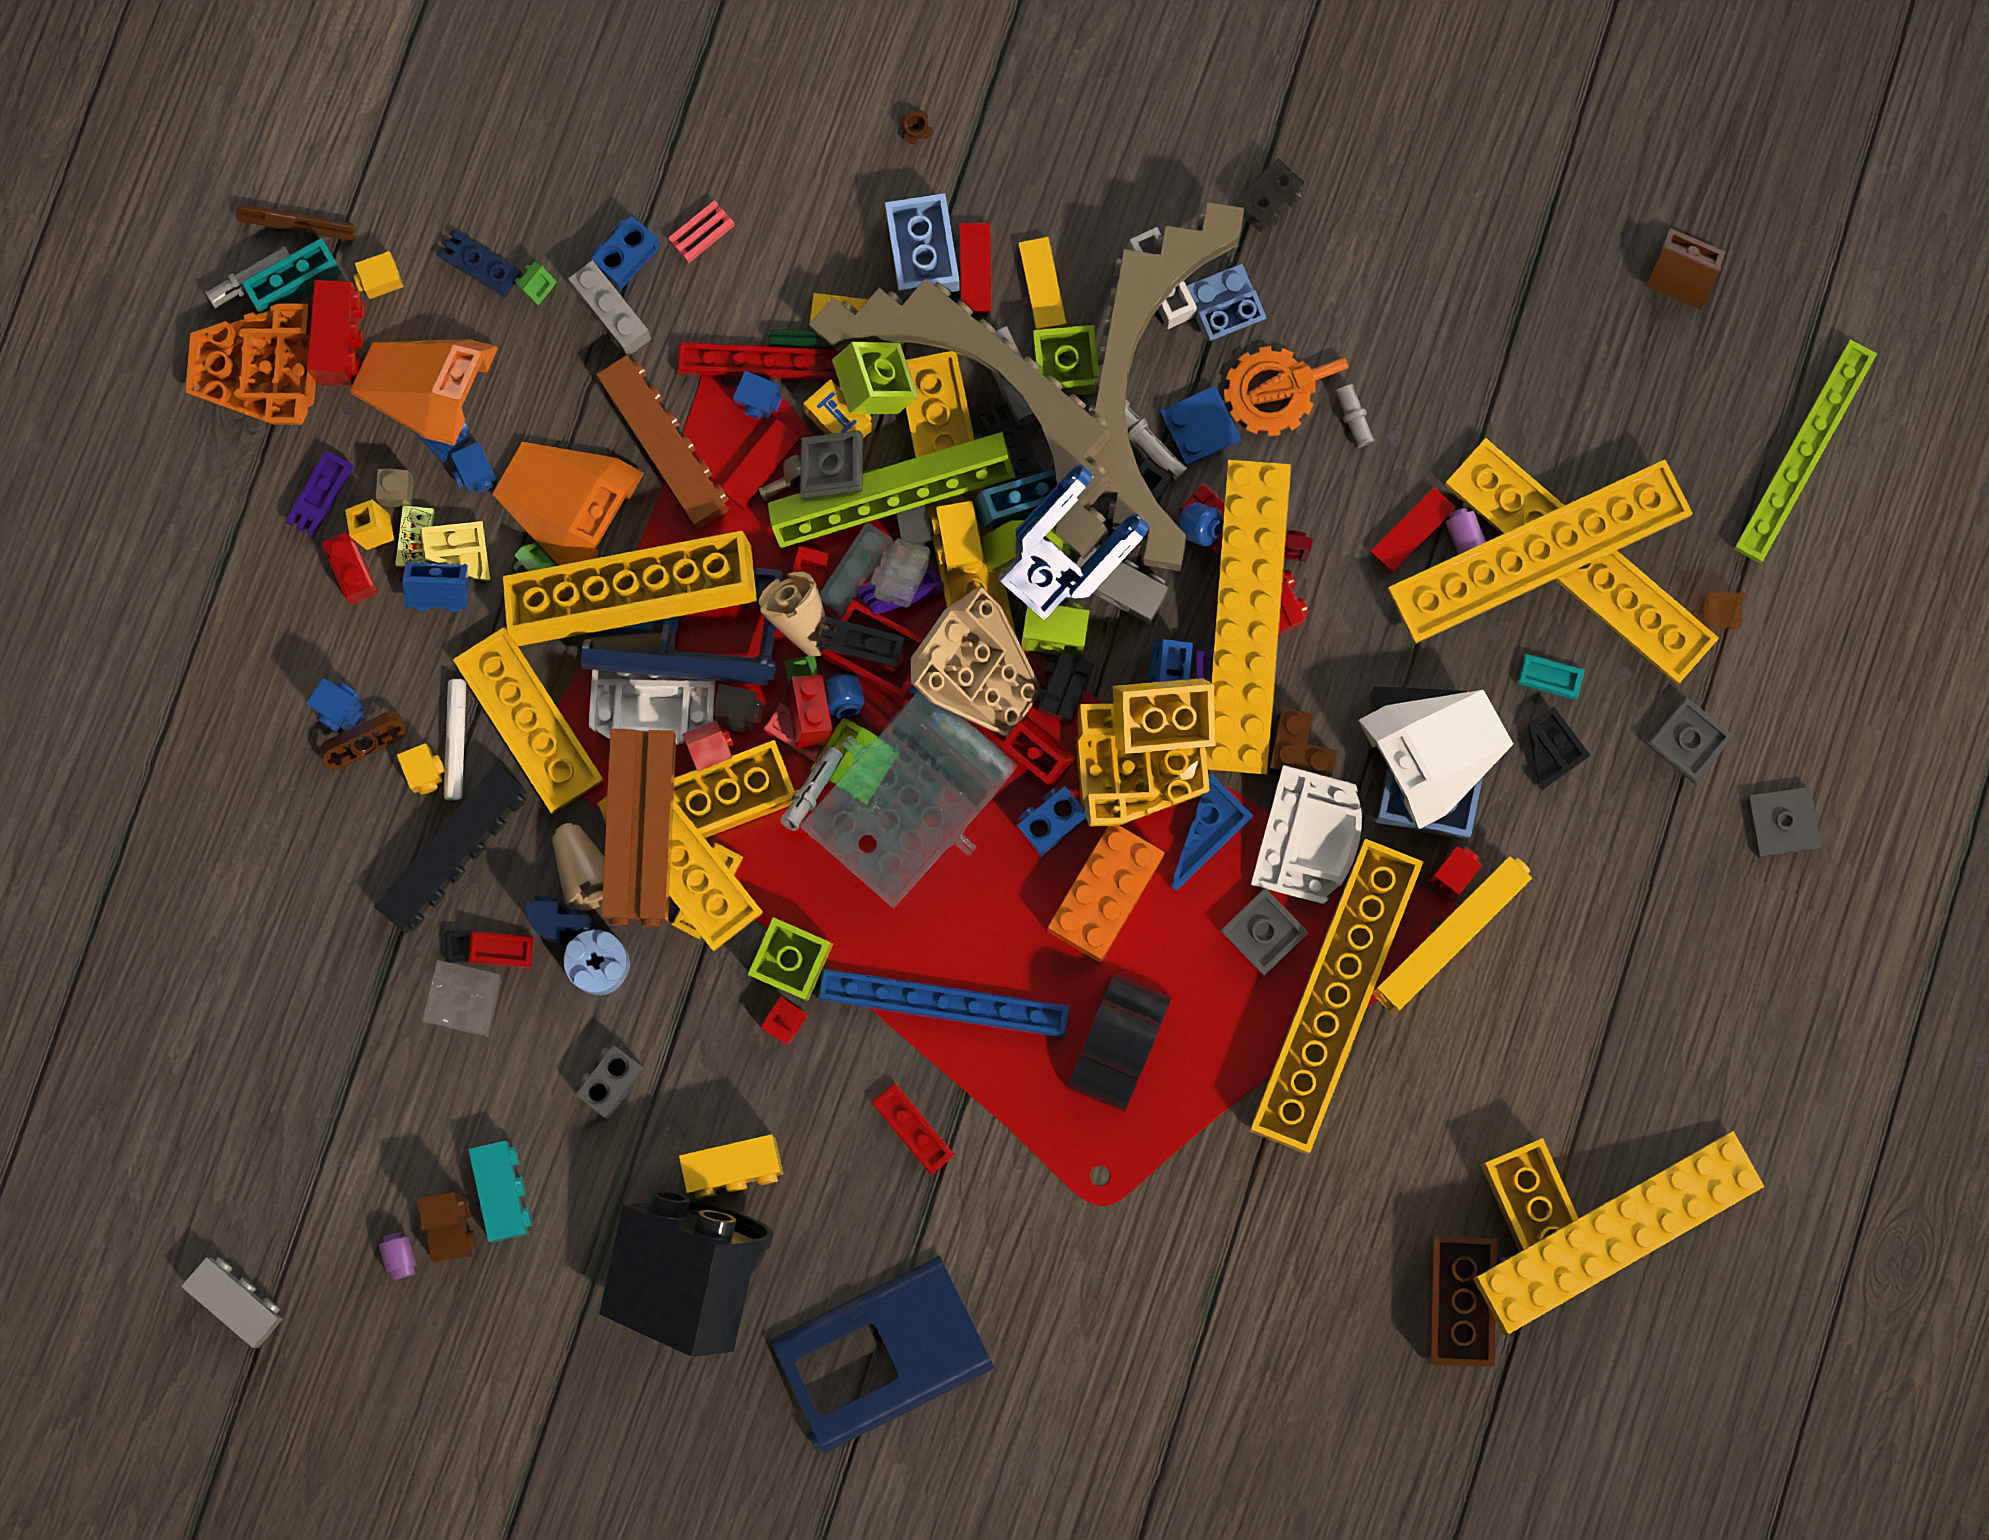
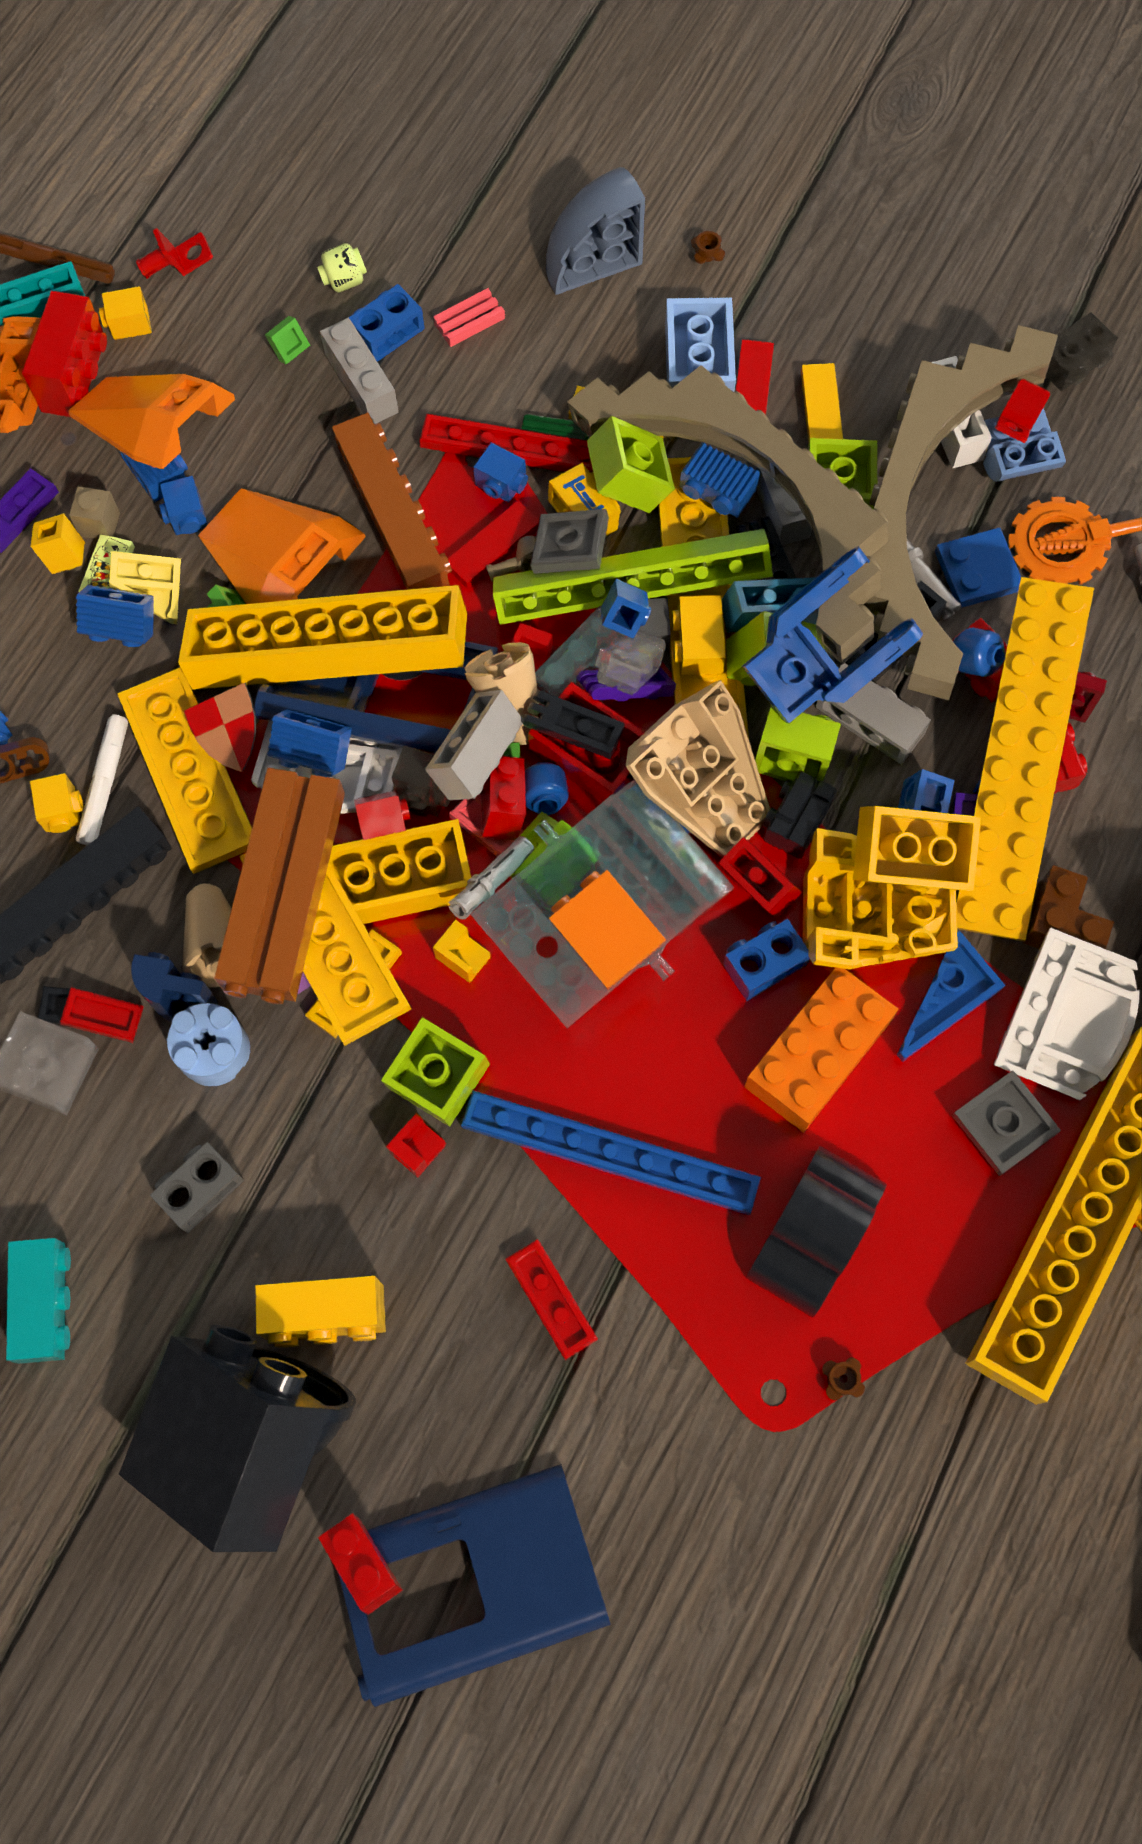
camera: 10 degrees right, 10 degrees down
(350, 568) = (27, 586): red brick -> none
(410, 205) = (167, 255): none -> red bracket
(480, 264) = (233, 319): dark blue hinge -> none
(557, 681) = (225, 726): none -> shield
(573, 199) = (342, 267): none -> yellowish green head
(635, 690) = (309, 743): none -> blue brick
(780, 676) = (474, 745): none -> light grey brick
(794, 851) = (461, 952): none -> yellow panel
(797, 1351) = (360, 1564): none -> red brick
(807, 134) = (597, 232): none -> sand blue brick
(890, 527) = (625, 608): none -> blue brick
(914, 825) = (606, 928): none -> orange brick
(956, 382) = (719, 480): none -> blue brick
(1145, 1153) = (853, 1384): none -> reddish brown plate
(1220, 281) = (1022, 410): none -> red bracket

